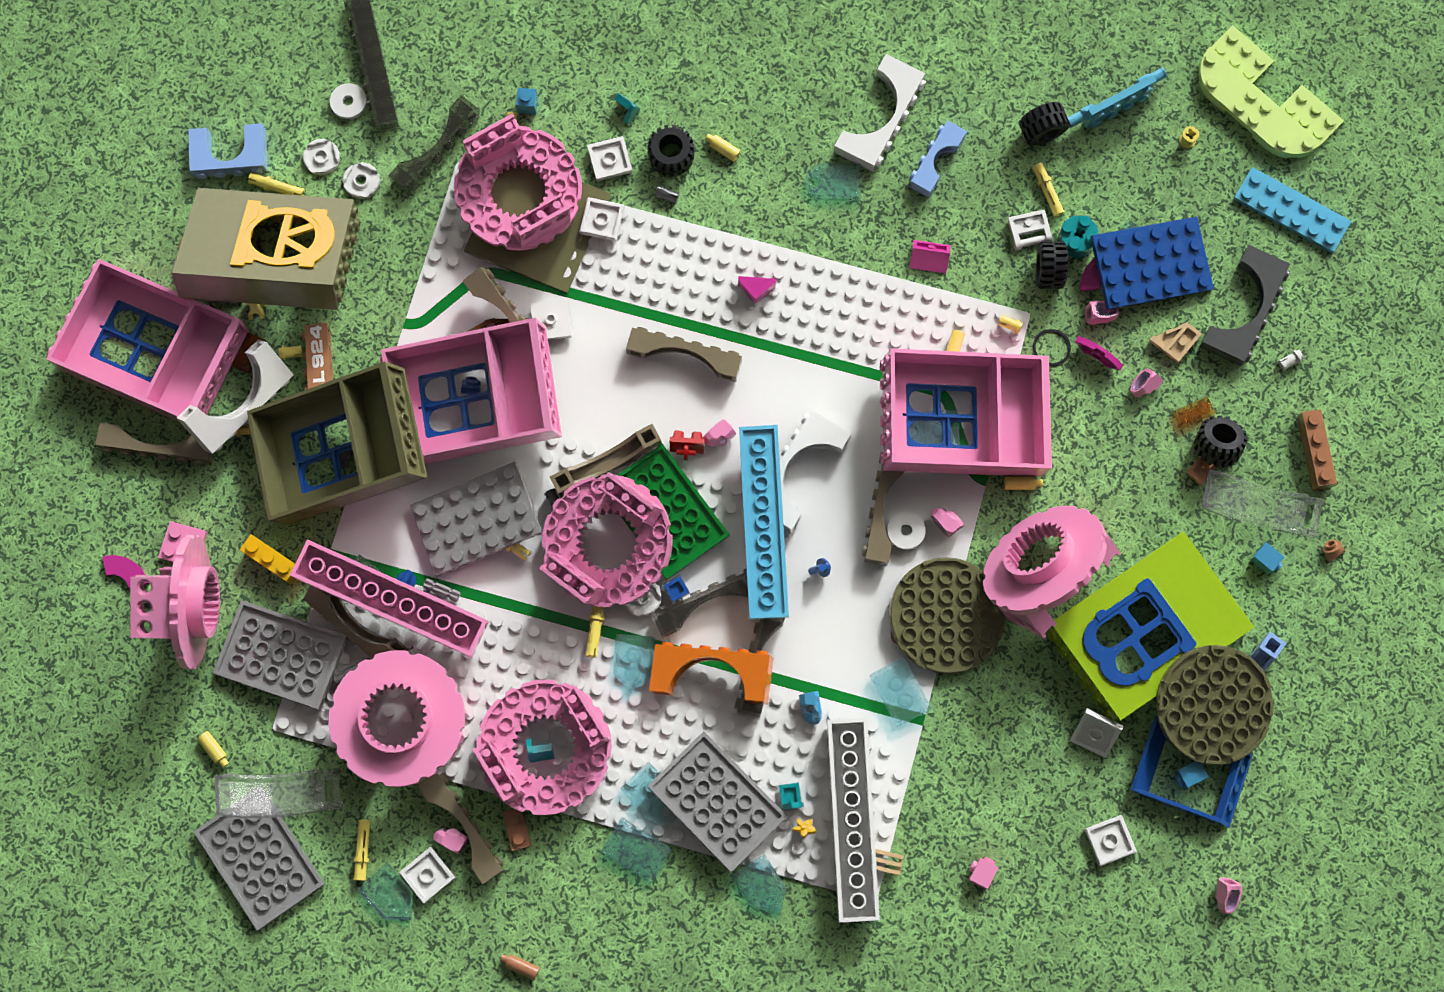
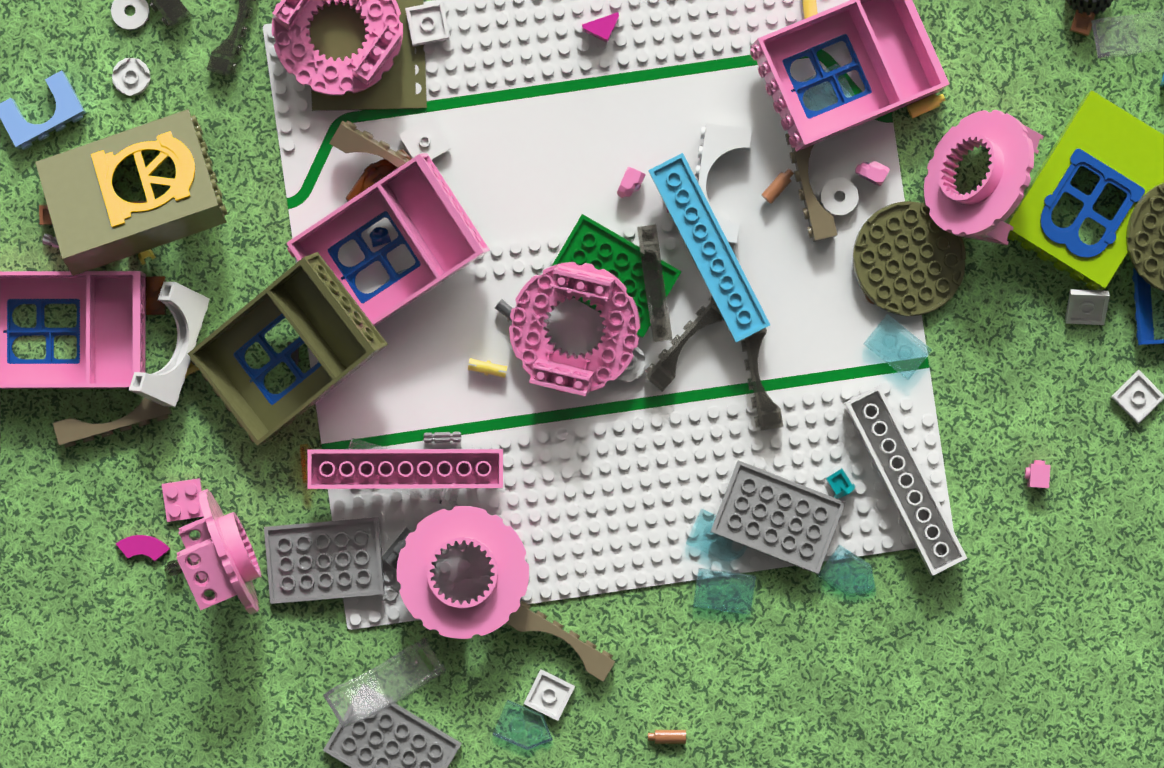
camera: 30 degrees left, 10 degrees up
(213, 749) = (303, 670): light yellow cylinder -> none
(268, 558) = (272, 478): yellow arch -> none
(274, 185) = (102, 124): light yellow pin -> none
(290, 352) = (194, 277): light yellow pin -> none
(317, 354) = (226, 274): nougat brick -> none
(338, 615) = (401, 513): dark tan arch -> none
(362, 850) = (480, 699): light yellow pin -> none
(368, 188) = (183, 94): white tile -> none
(407, 577) = (406, 441): blue plate -> none
(451, 839) = (556, 654): bright pink rock -> none
(476, 519) = (444, 359): light grey plate -> none
(501, 730) = (648, 547): bright pink piece -> none
(516, 829) = (609, 619): nougat plate -> none
(539, 752) = (599, 544): teal tile -> none
(596, 620) = (595, 402): light yellow pin -> none
(623, 453) = (539, 252): dark tan arch -> none
(633, 660) = (645, 424): clear light blue tile -> none
(645, 344) = (604, 114): dark tan arch -> none
(673, 661) = (682, 410): orange arch -> none
(676, 589) = (655, 348): blue plate -> none
(687, 446) = (604, 207): red hips -> none
(698, 533) = (654, 283): none -> clear smoke arch
(804, 828) = (864, 506): yellow plant -> none
(811, 707) = (824, 396): dark azure rock -> none
(822, 567) = (778, 264): blue plate -> none
(852, 496) = (777, 186): none -> nougat cylinder
(898, 864) = (962, 501): tan tile -> none

